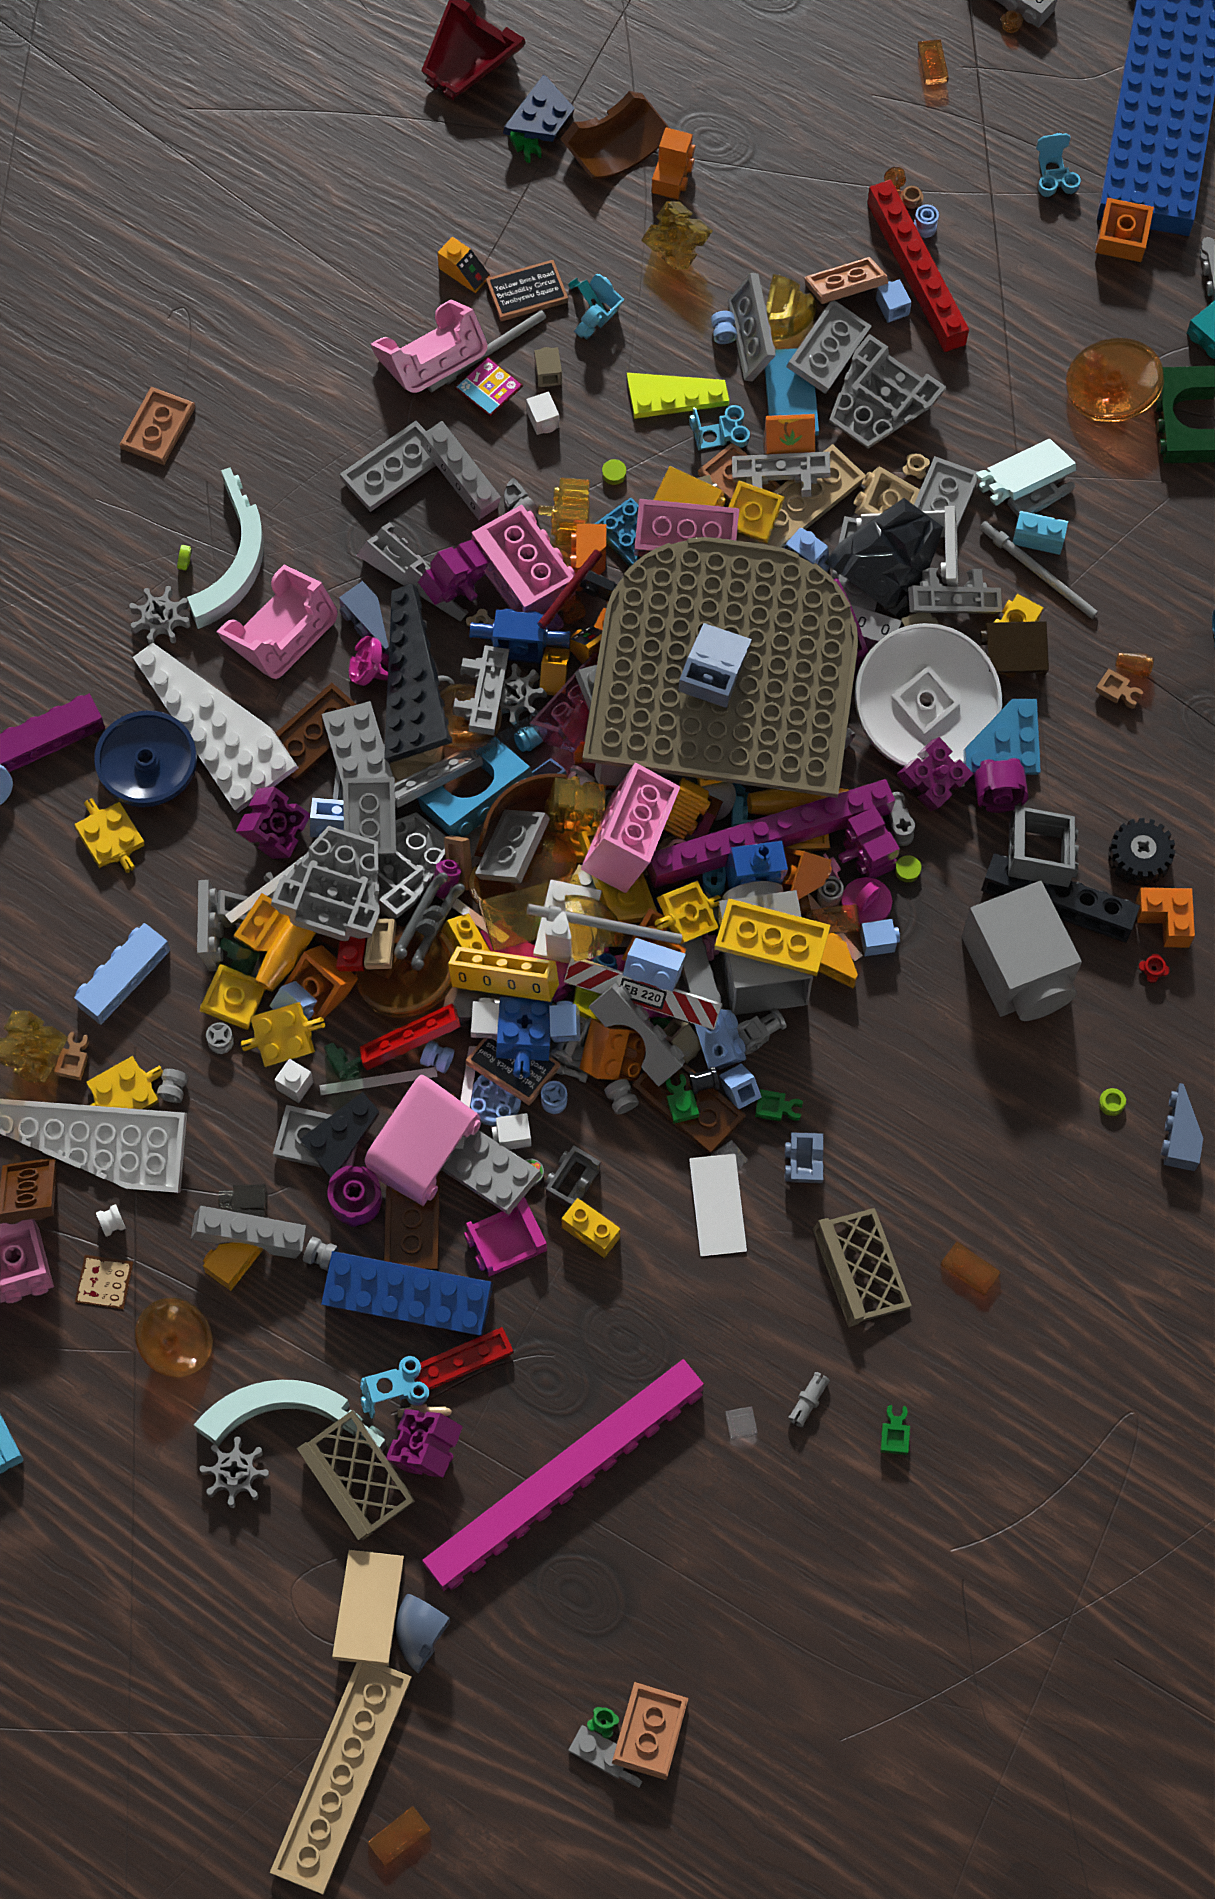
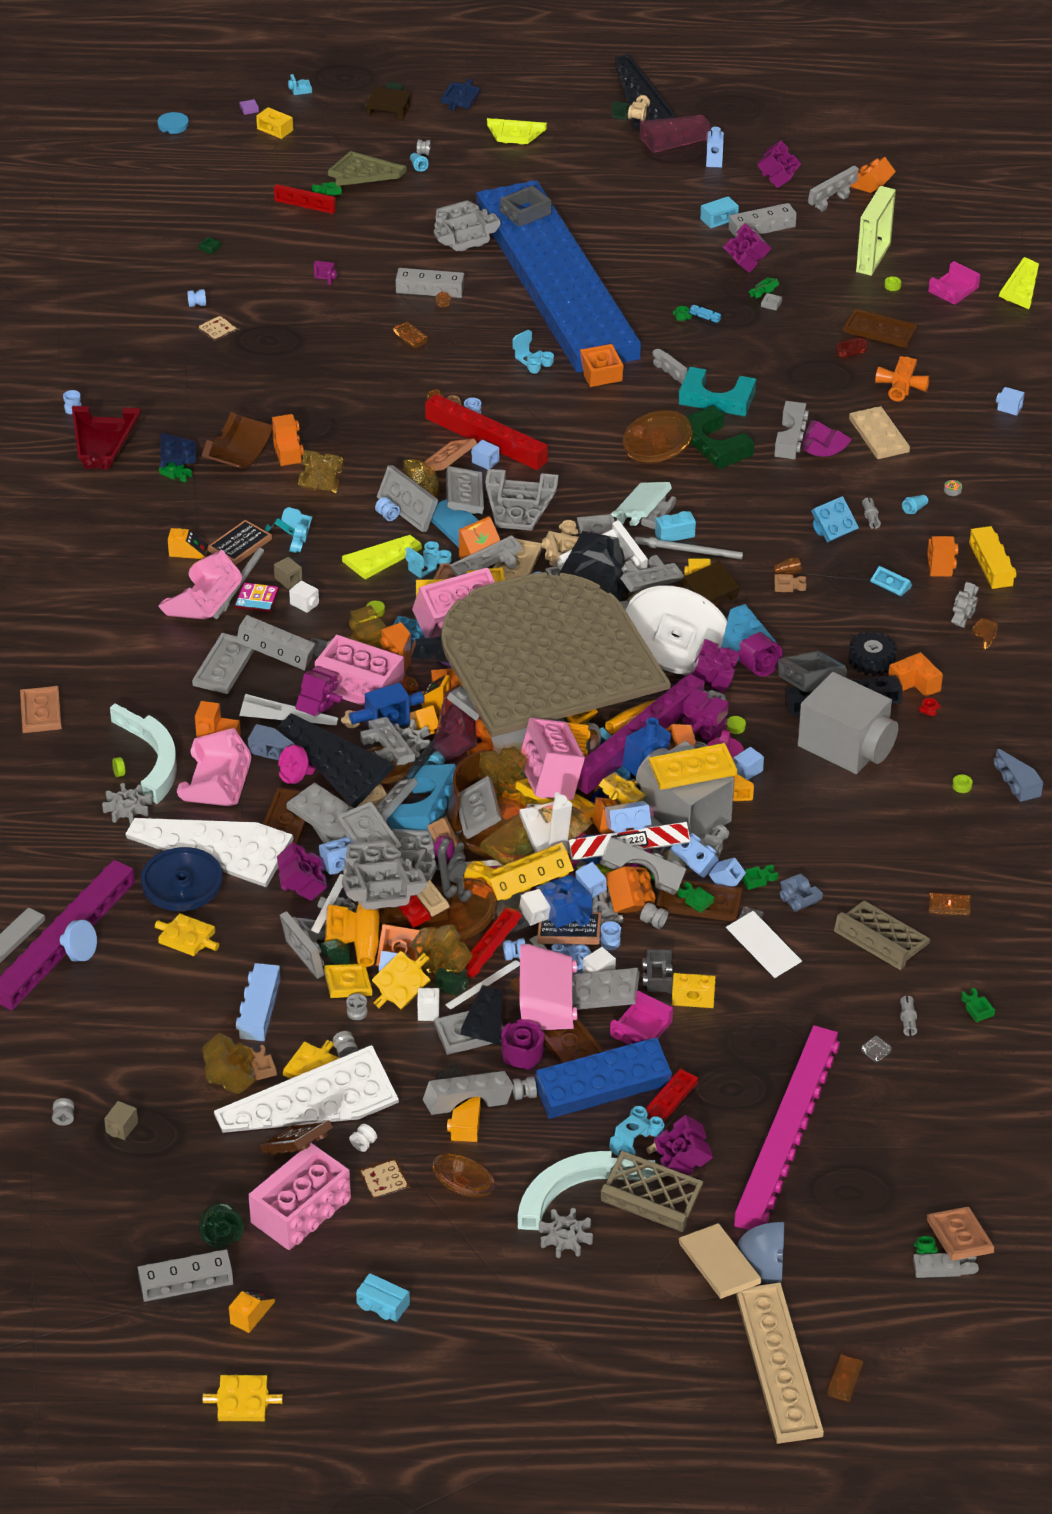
camera: 30 degrees left, 25 degrees down
(315, 559) = (209, 720): none -> orange brick
(348, 1020) = (442, 948): none -> clear yellow brick
(552, 912) = (546, 811): light grey bar -> none
(569, 589) = (405, 662): dark red bar -> none
(703, 1080) = (703, 877): black bush -> none
(714, 665) = (541, 647): sand blue slope -> none

